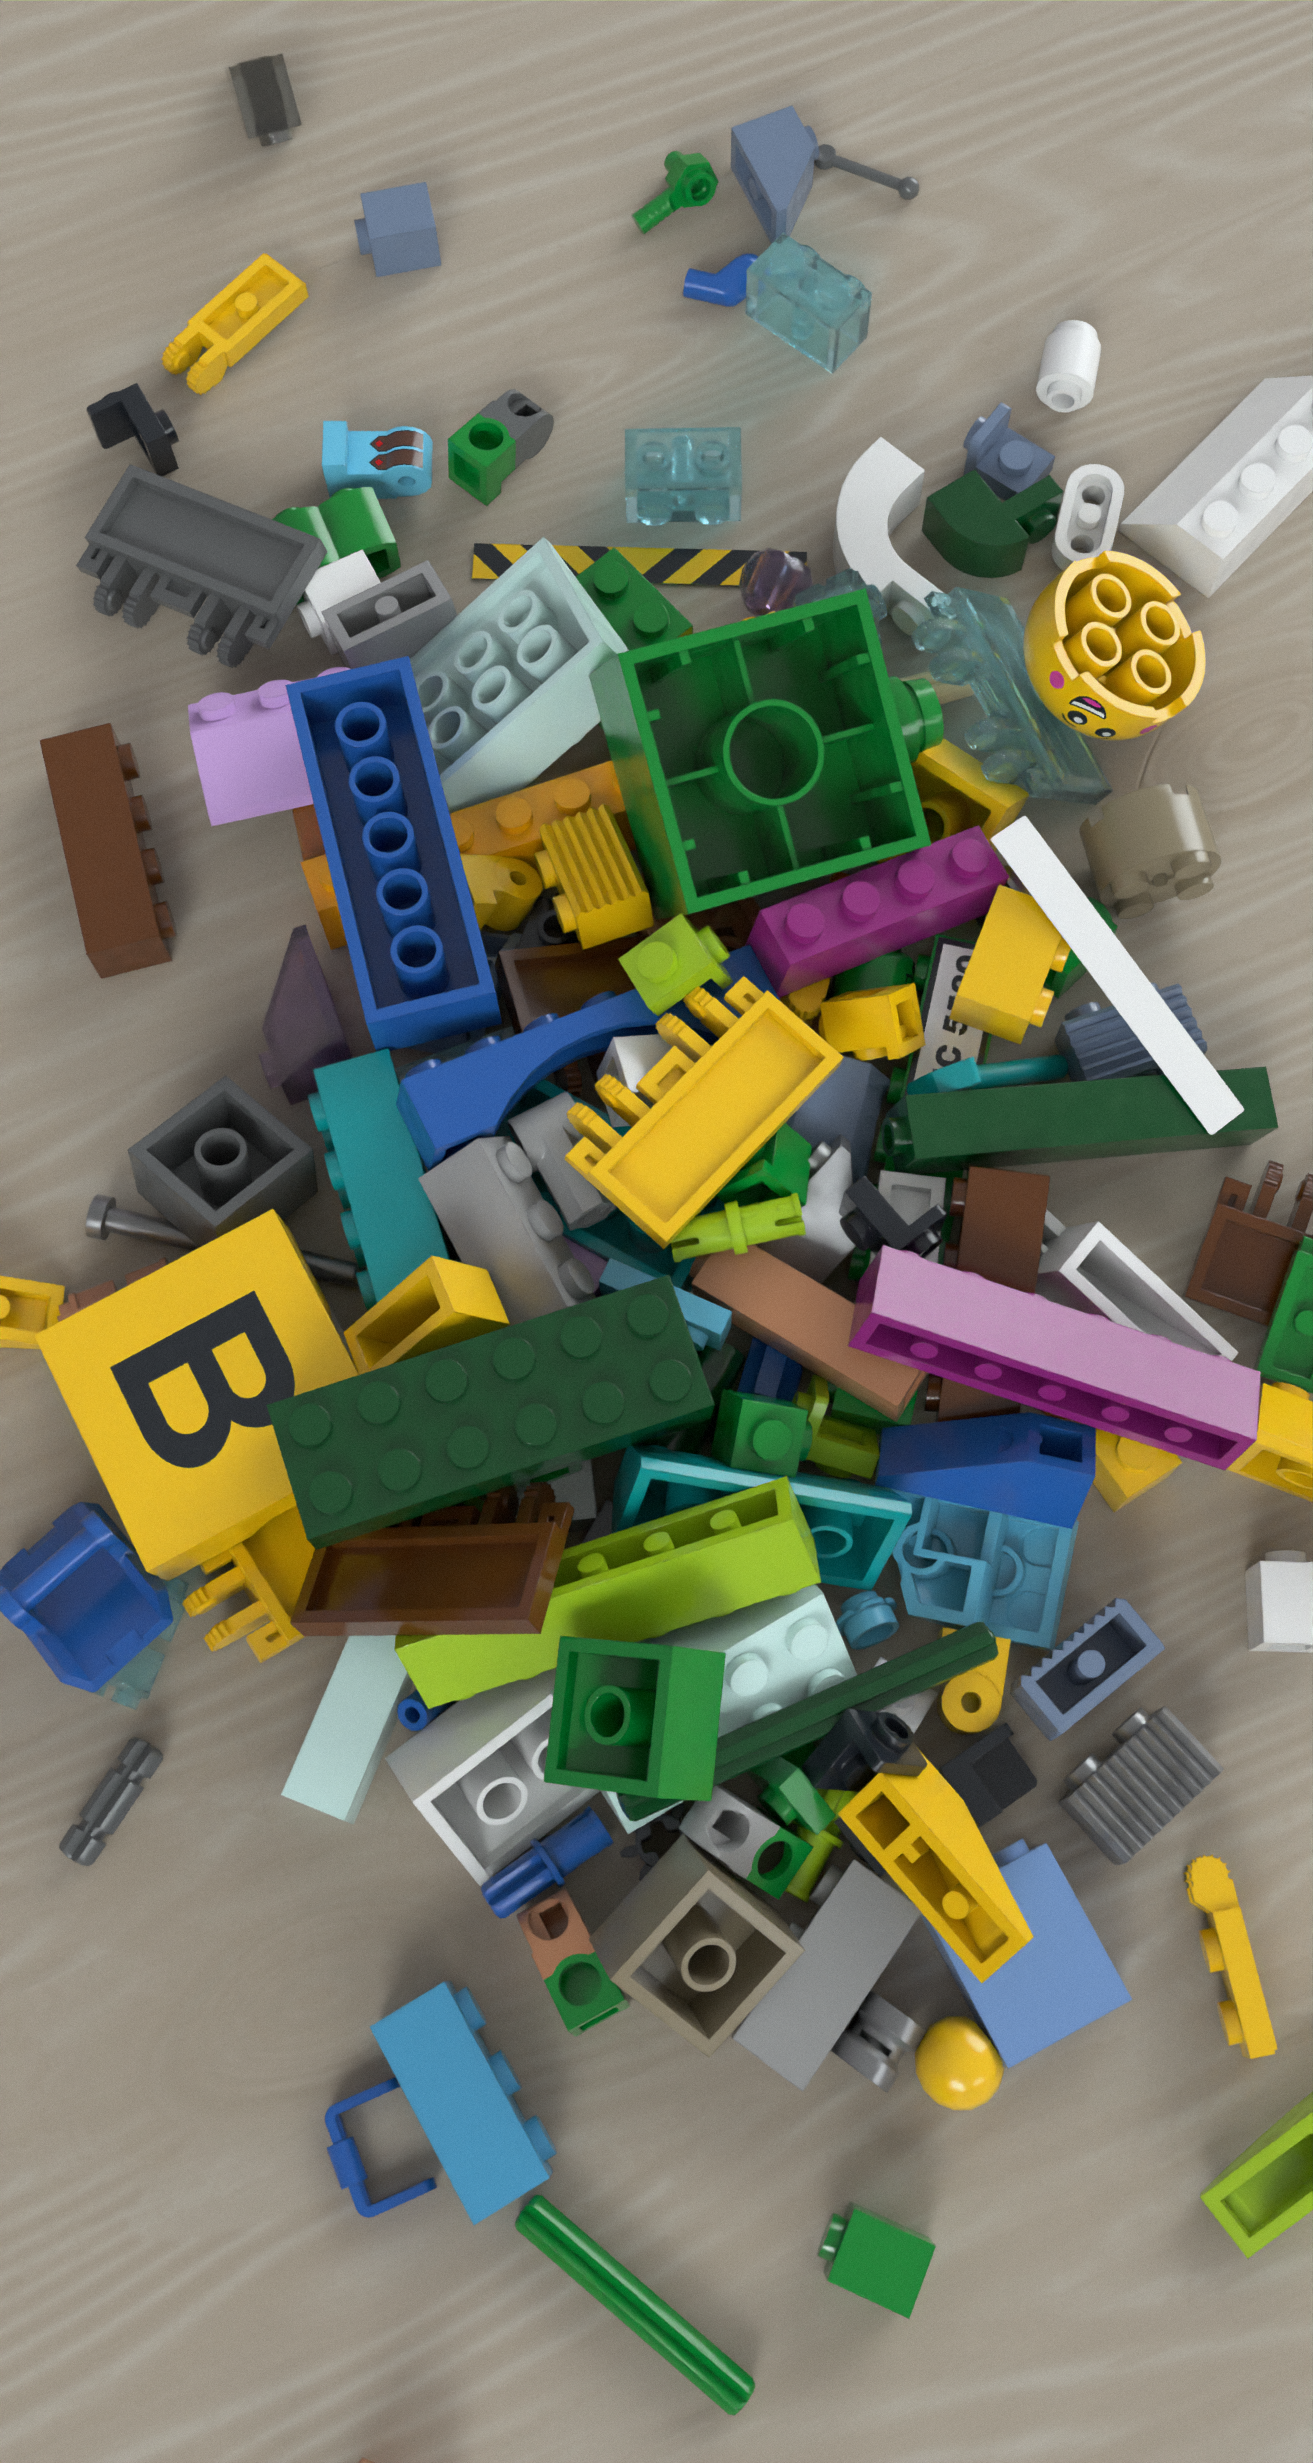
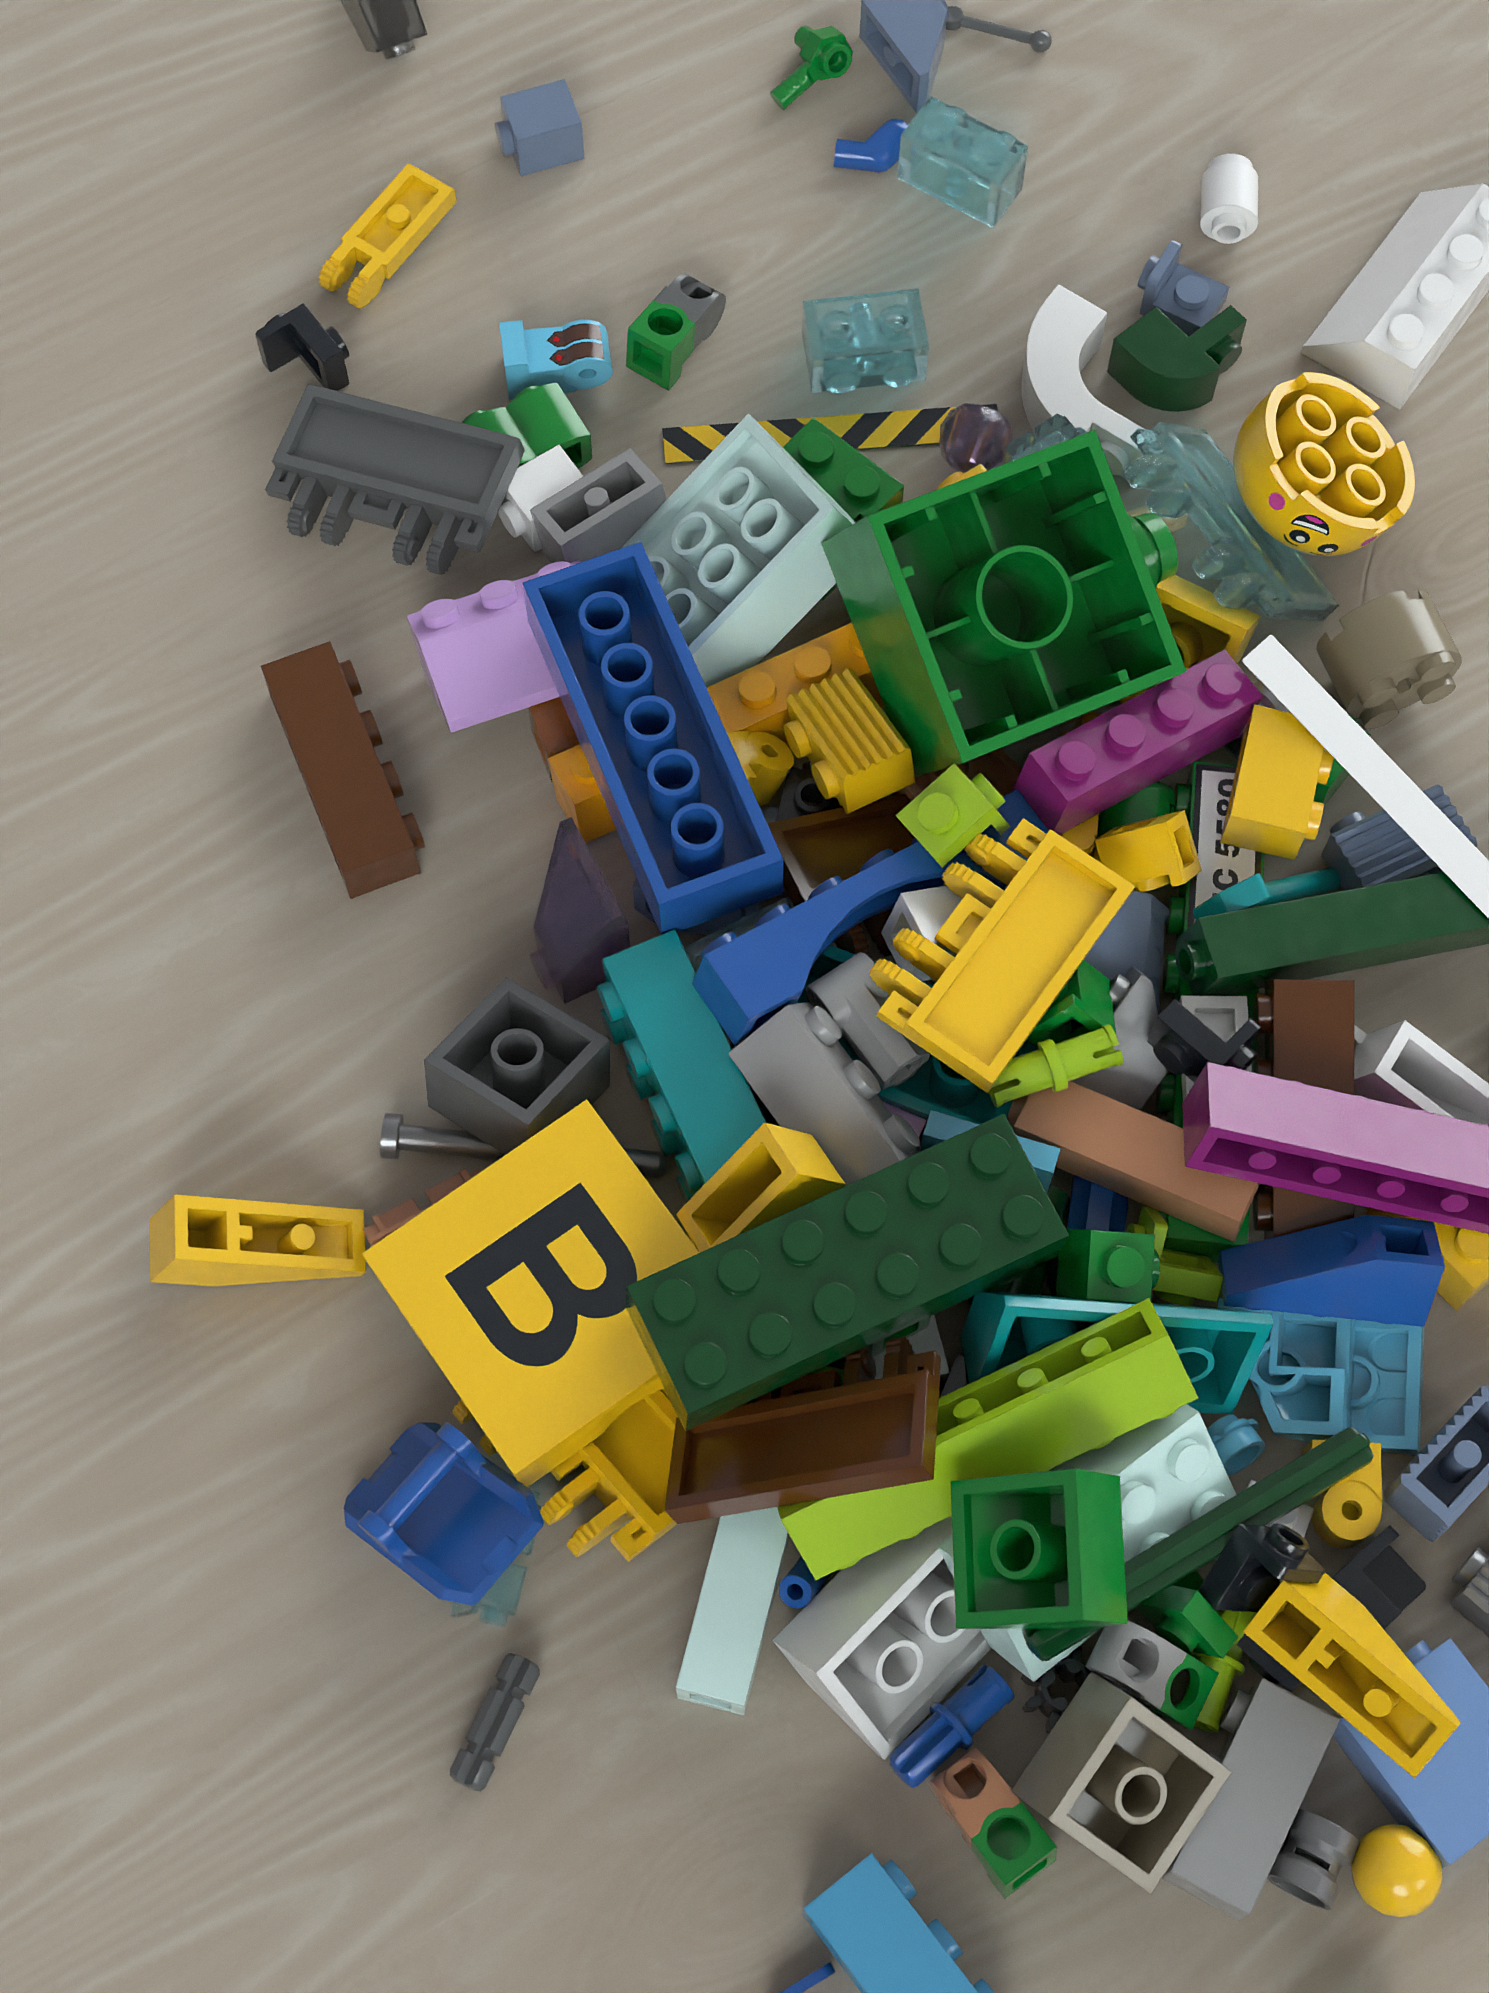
camera: 10 degrees left, 5 degrees down
(1085, 523) = (1271, 350): white plate -> none

